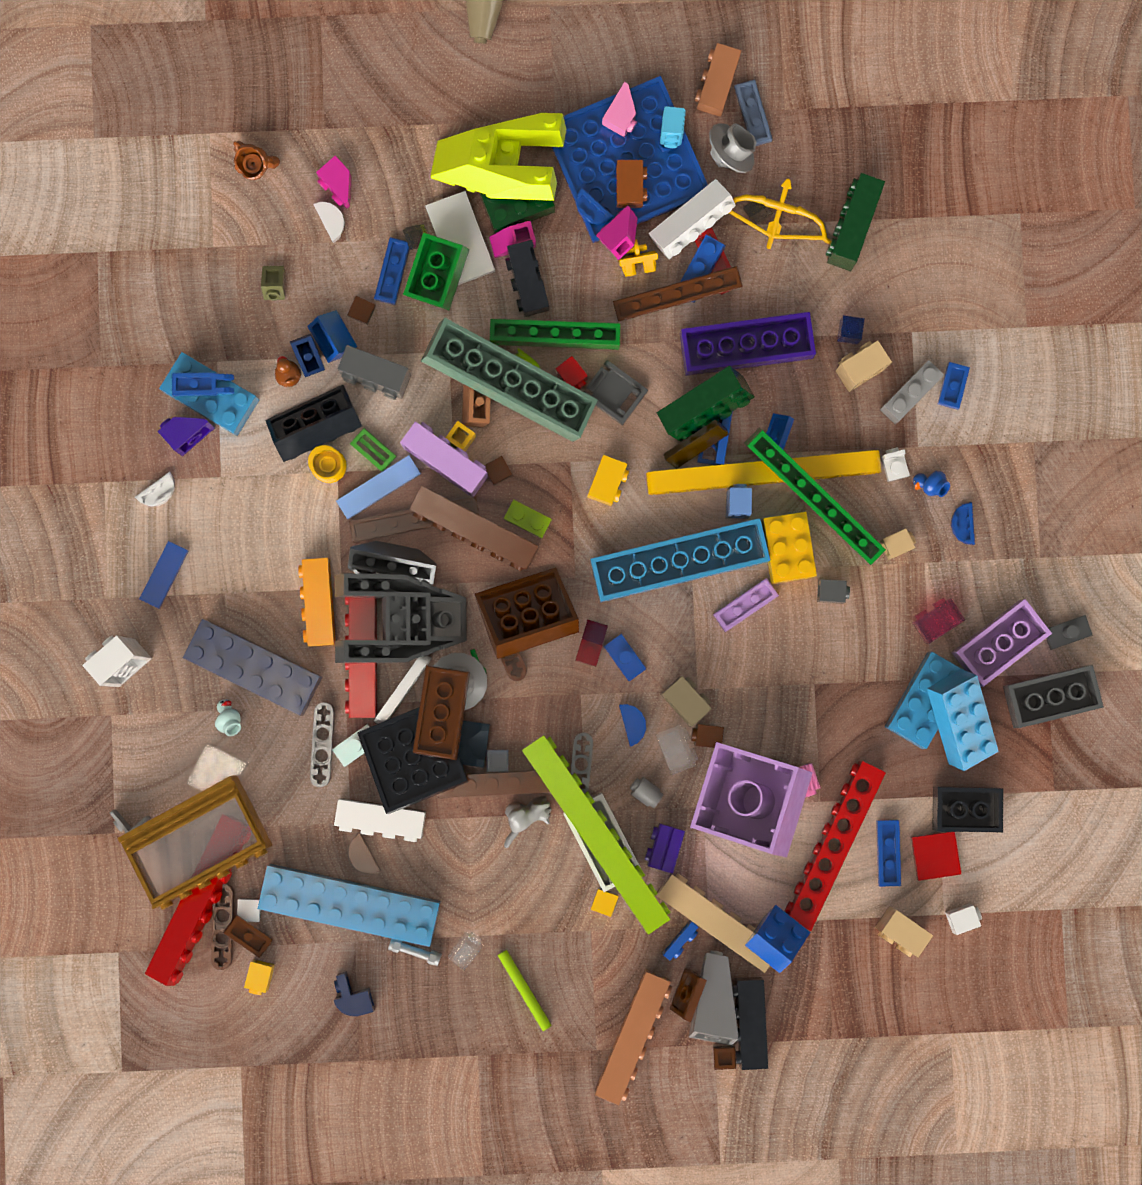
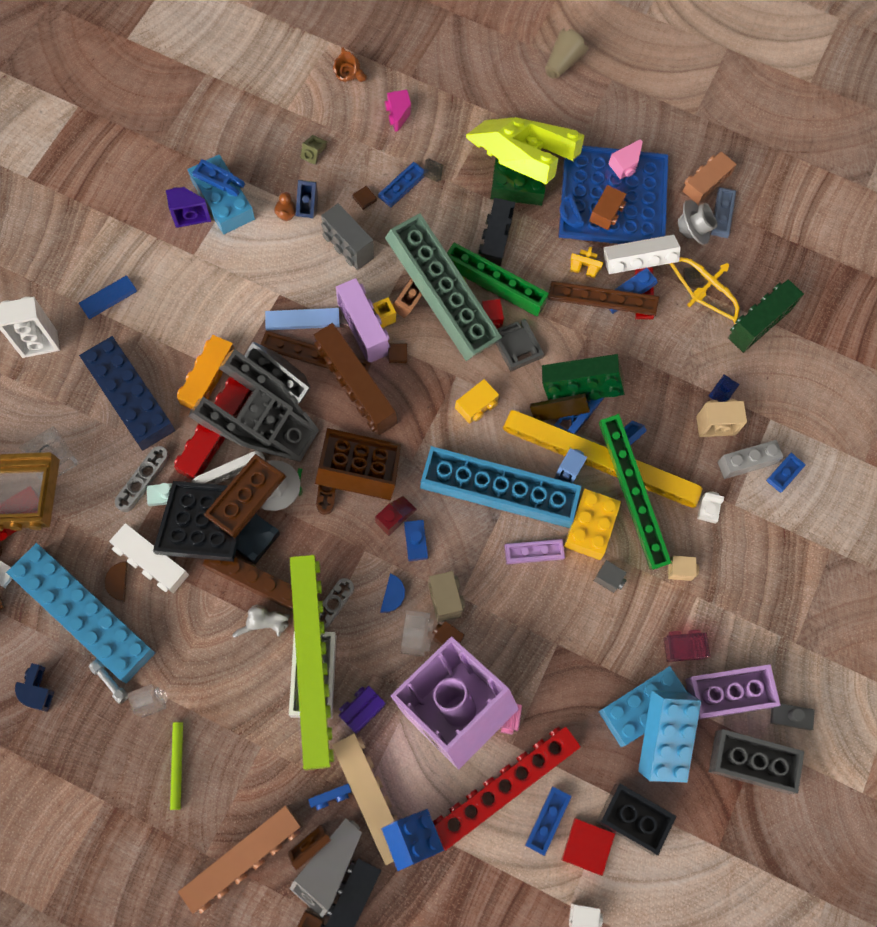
camera: 30 degrees right, 15 degrees down
(158, 492) = (142, 241): white tile -> none
(228, 719) = (83, 420): light aqua animal -> none
(313, 423) = (282, 252): black slope -> none
(327, 464) = (275, 283): yellow piece -> none
(331, 218) = (380, 131): white tile -> none
(331, 335) = (330, 195): blue brick -> none
(387, 462) = (319, 304): bright green tile -> none
(436, 271) = (433, 193): green brick -> none
(456, 222) = (463, 187): white tile -> none
(497, 760) = (269, 564): sand blue tile -> none
(511, 235) = (503, 194): dark pink slope -> none
(527, 519) = (400, 398): lime plate -> none
(604, 902) = (286, 728): yellow tile -> none
(619, 233) = (582, 234): dark pink slope -> none
(646, 792) = (372, 655): light grey brick -> none
(672, 127) = (660, 183): medium azure brick -> none
(747, 343) = (642, 358): dark purple brick -> none
(906, 933) = (526, 897): tan brick -> none
(933, 485) = (734, 537): blue animal -> none
(963, 524) = (743, 583): blue tile -> none

